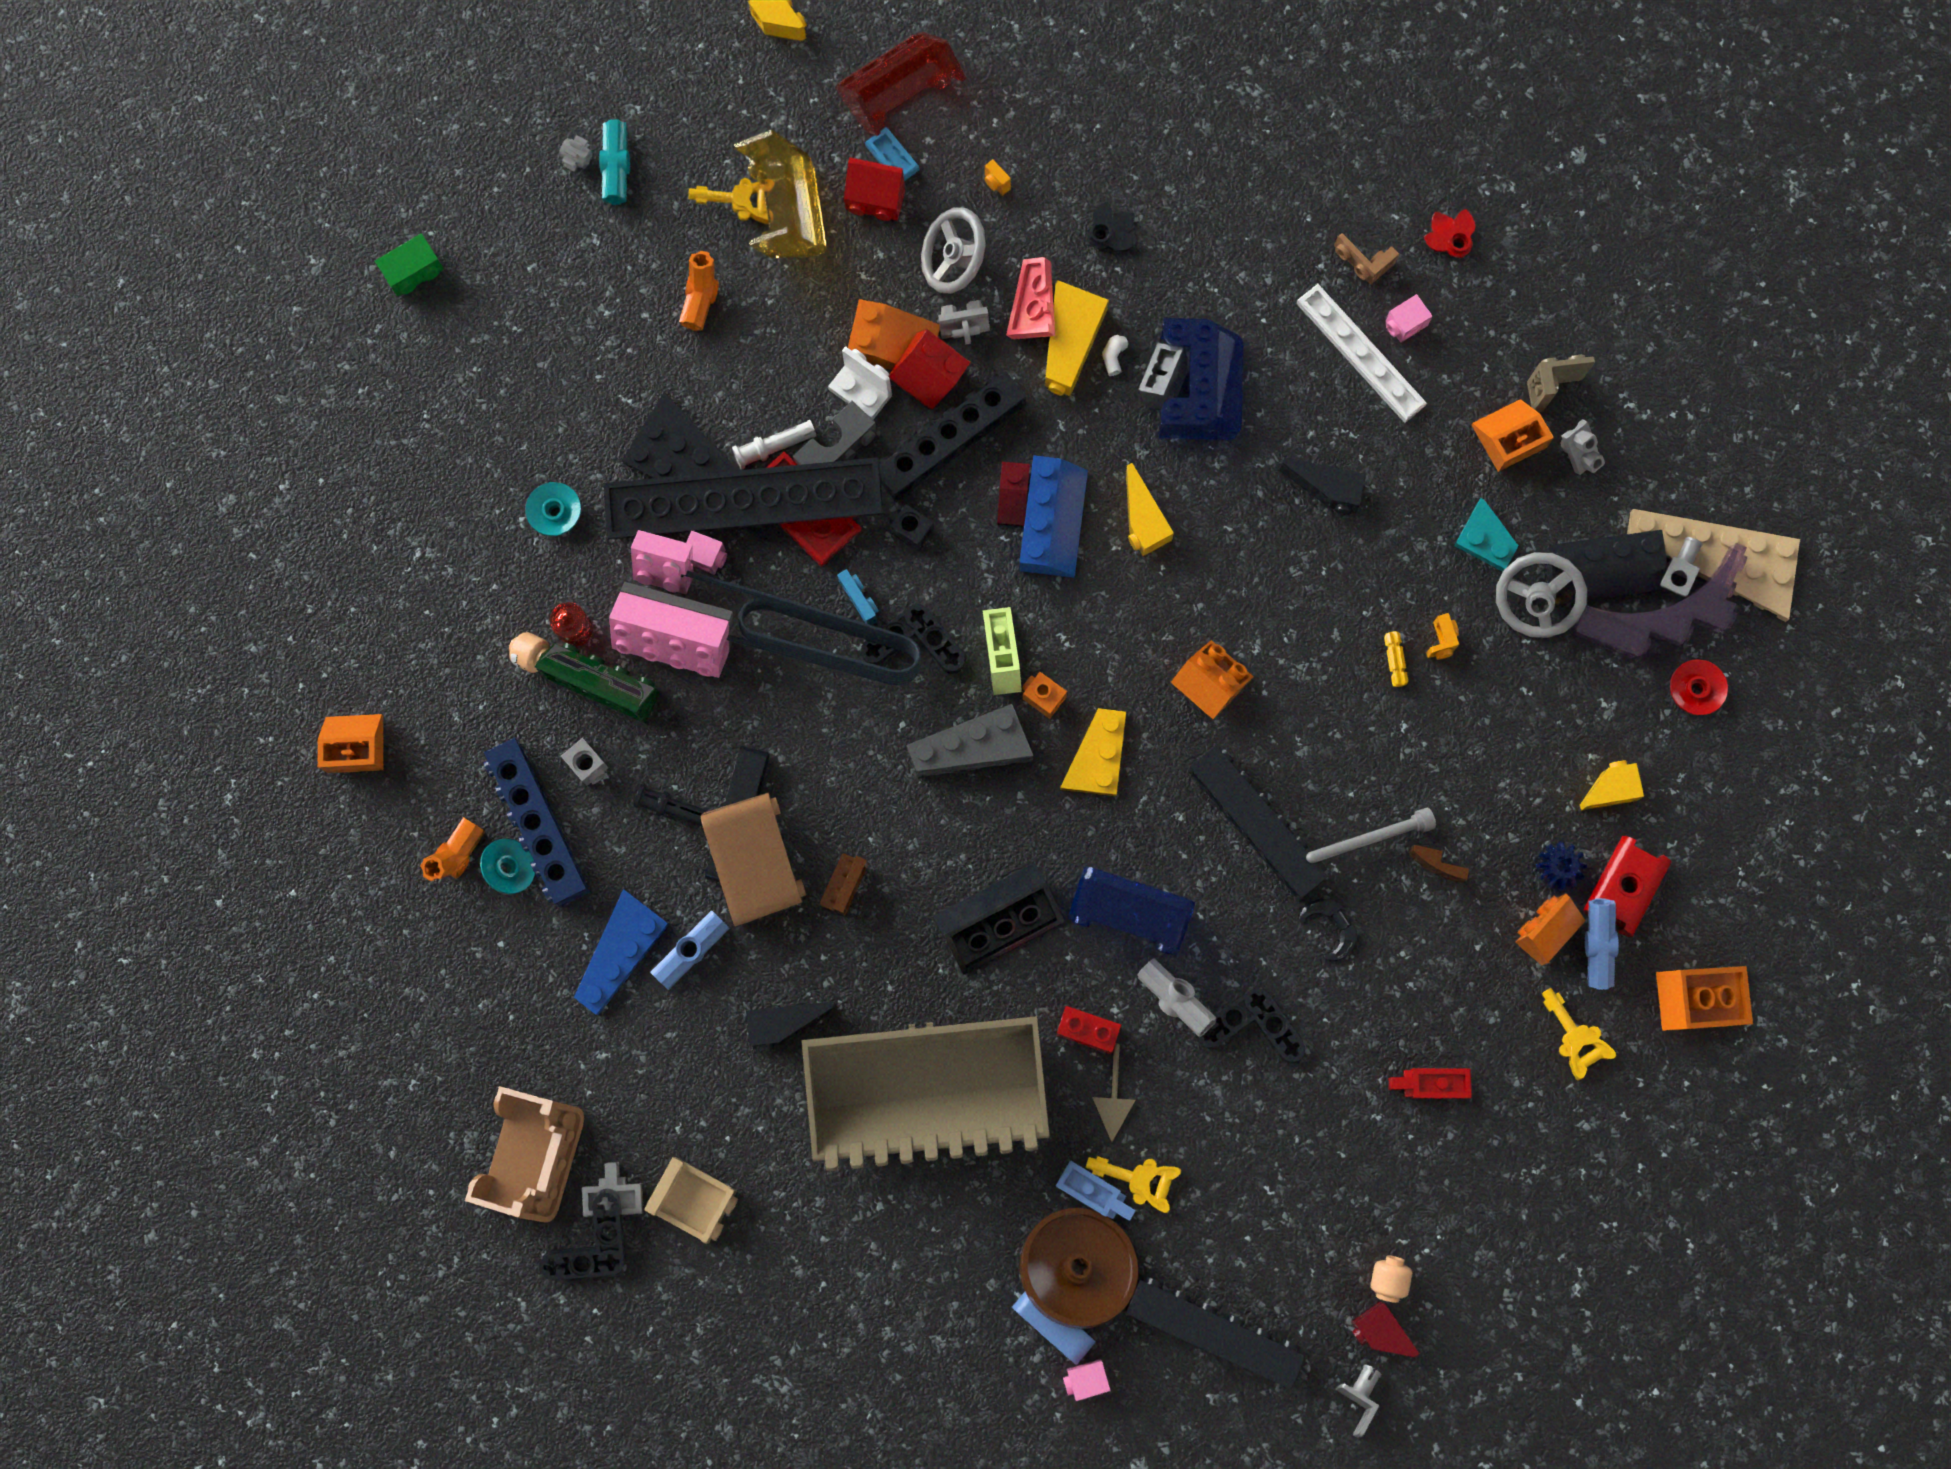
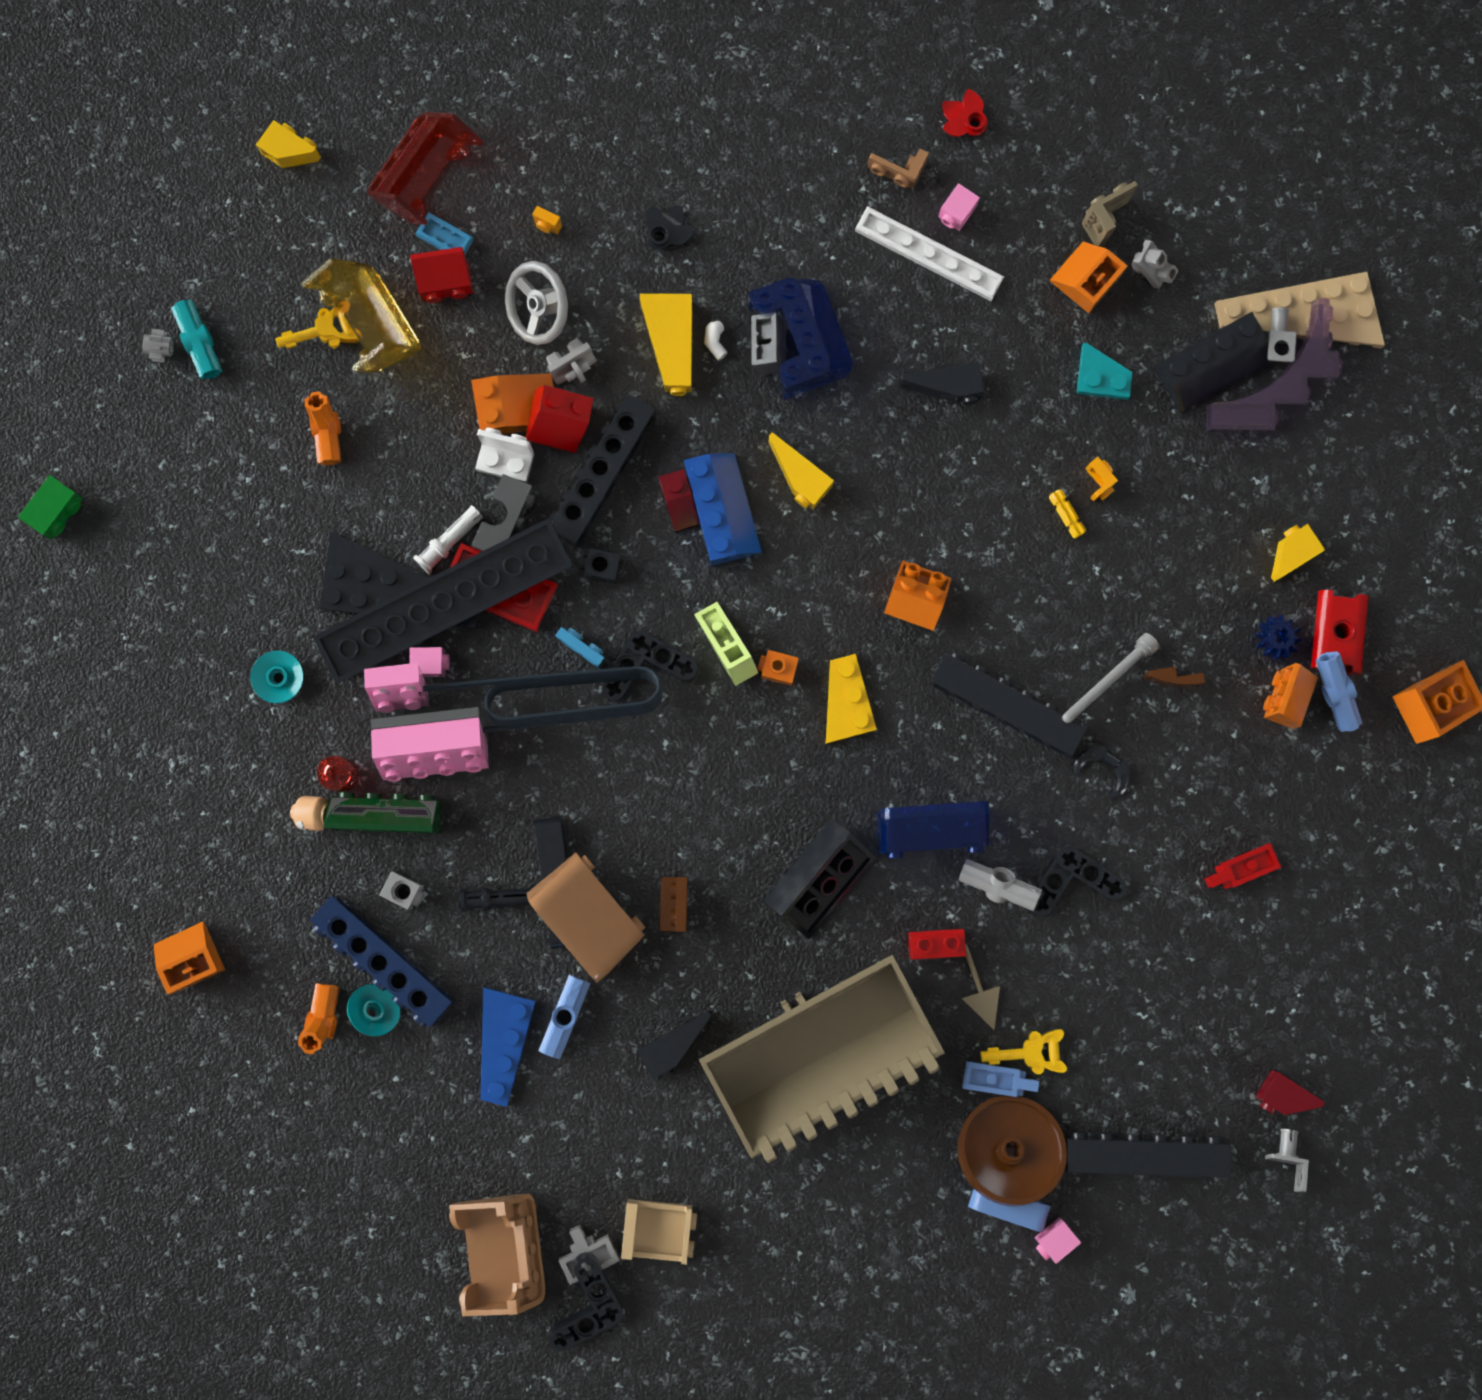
camera: 30 degrees left, 5 degrees up
(975, 744) = (740, 733): dark grey wedge -> none
(1033, 302) = (625, 321): coral wing -> none
(1391, 1279) = (1275, 1048): light nougat head -> none
(1541, 607) = (1171, 409): light grey piece -> none
(1577, 1038) = (1348, 779): yellow piece -> none
(1710, 681) = (1342, 429): red dish -> none

